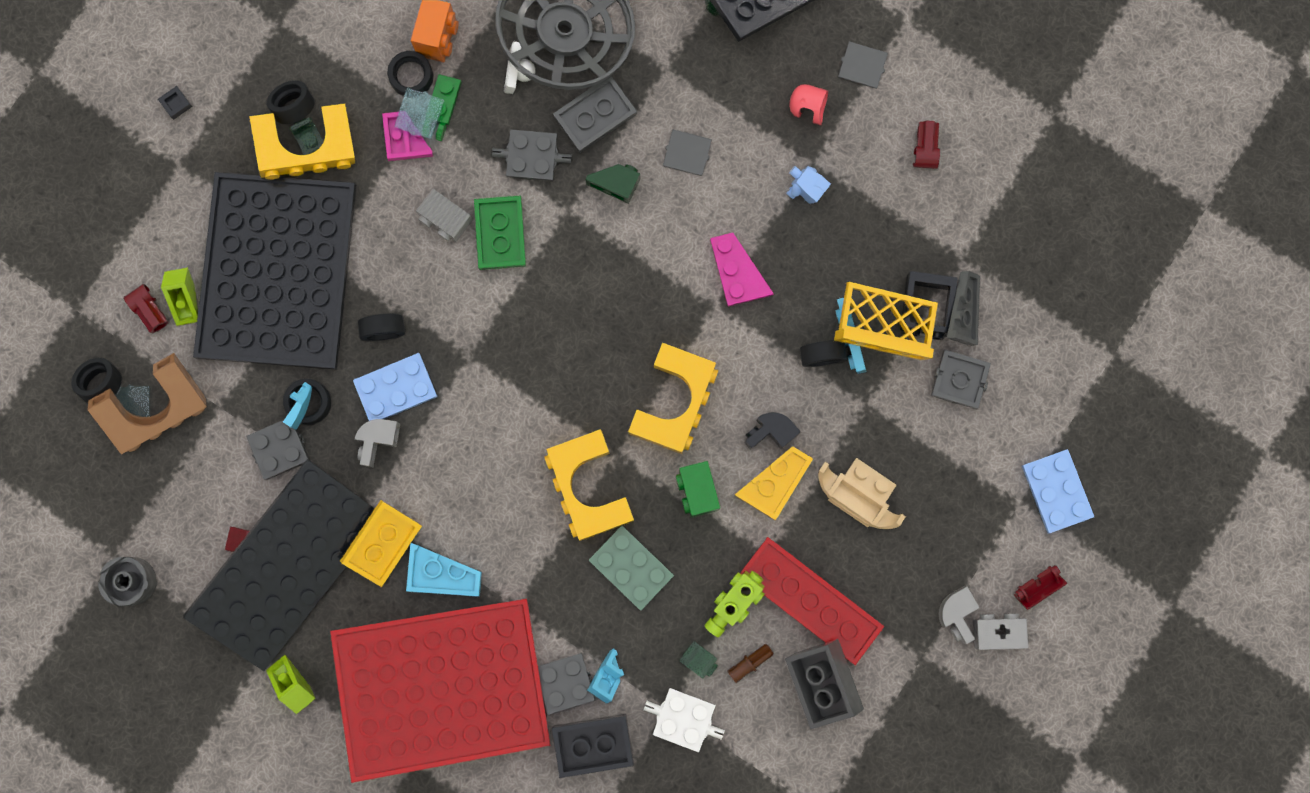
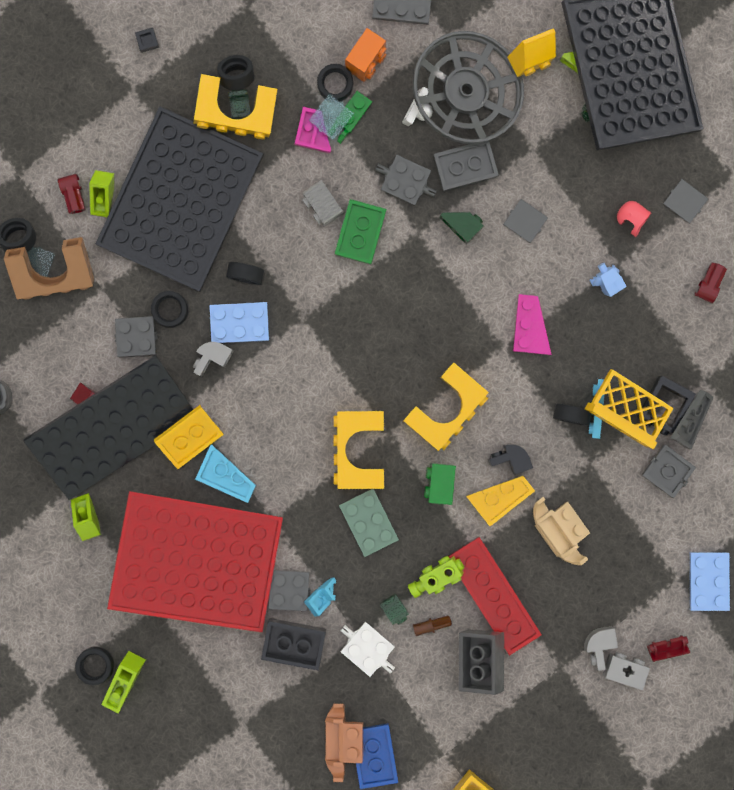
camera: 10 degrees right, 5 degrees up
(298, 411) = (159, 317): medium azure slope -> none

